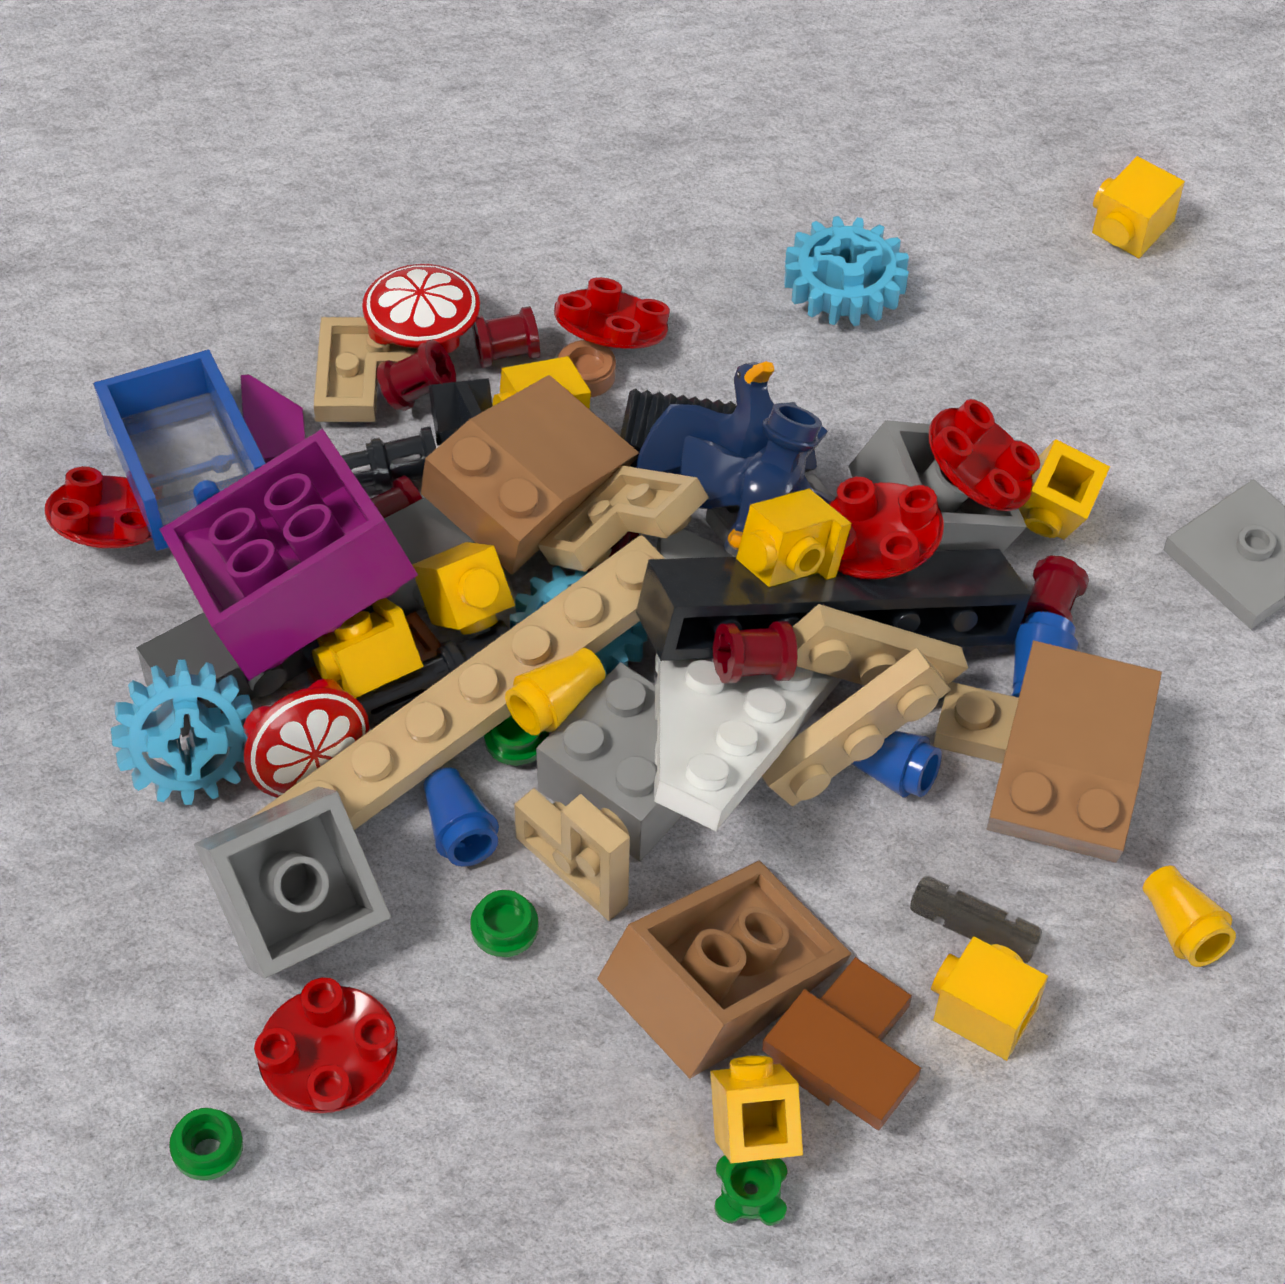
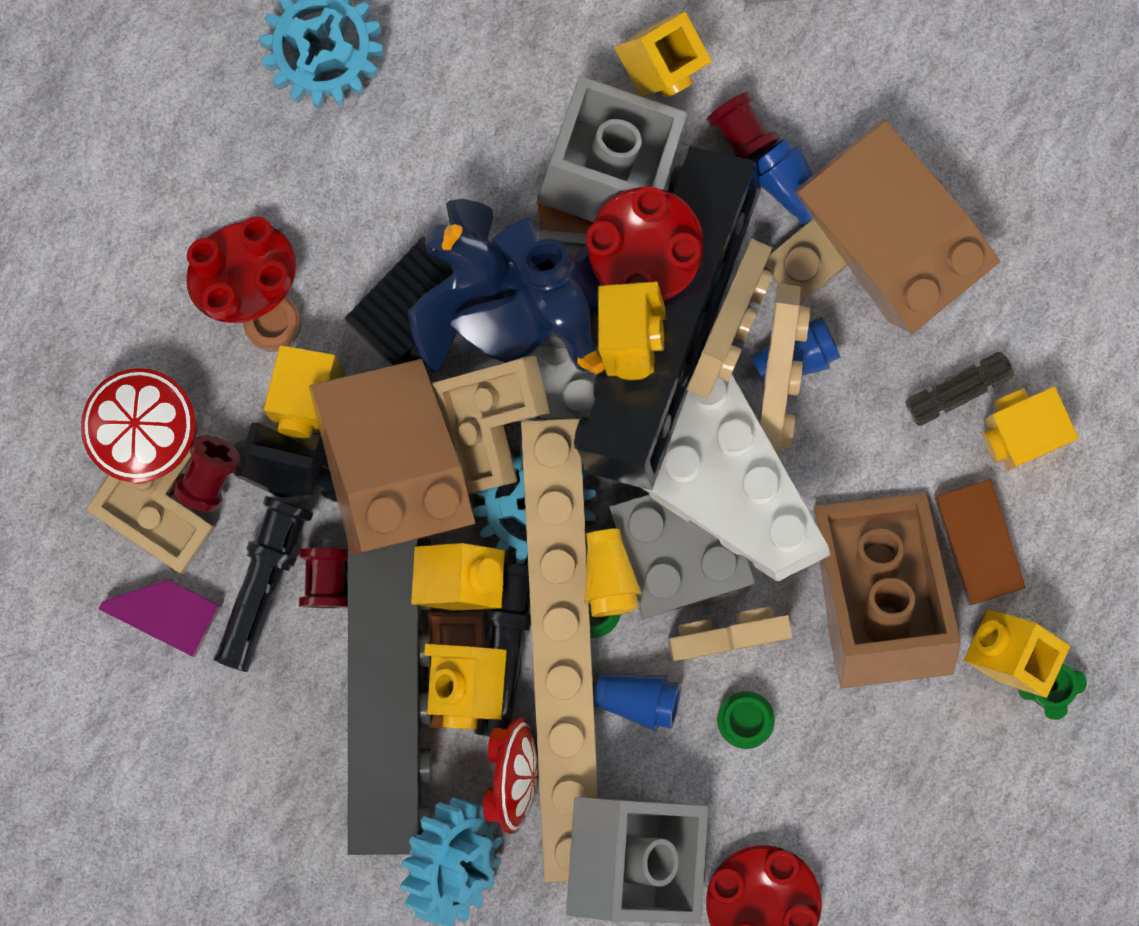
camera: 55 degrees left, 30 degrees up
(96, 510) = (174, 794): red dish -> none
(176, 436) = (166, 707): door -> none
(287, 554) = (359, 702): magenta slope -> none
(506, 337) = (205, 369): dark red bush -> none
(755, 652) = (697, 419): dark red bush -> none
(841, 1059) = (1011, 565): dark orange tile -> none
(983, 456) = (623, 110): red dish -> none
(1191, 920) = (1061, 243): yellow cone -> none

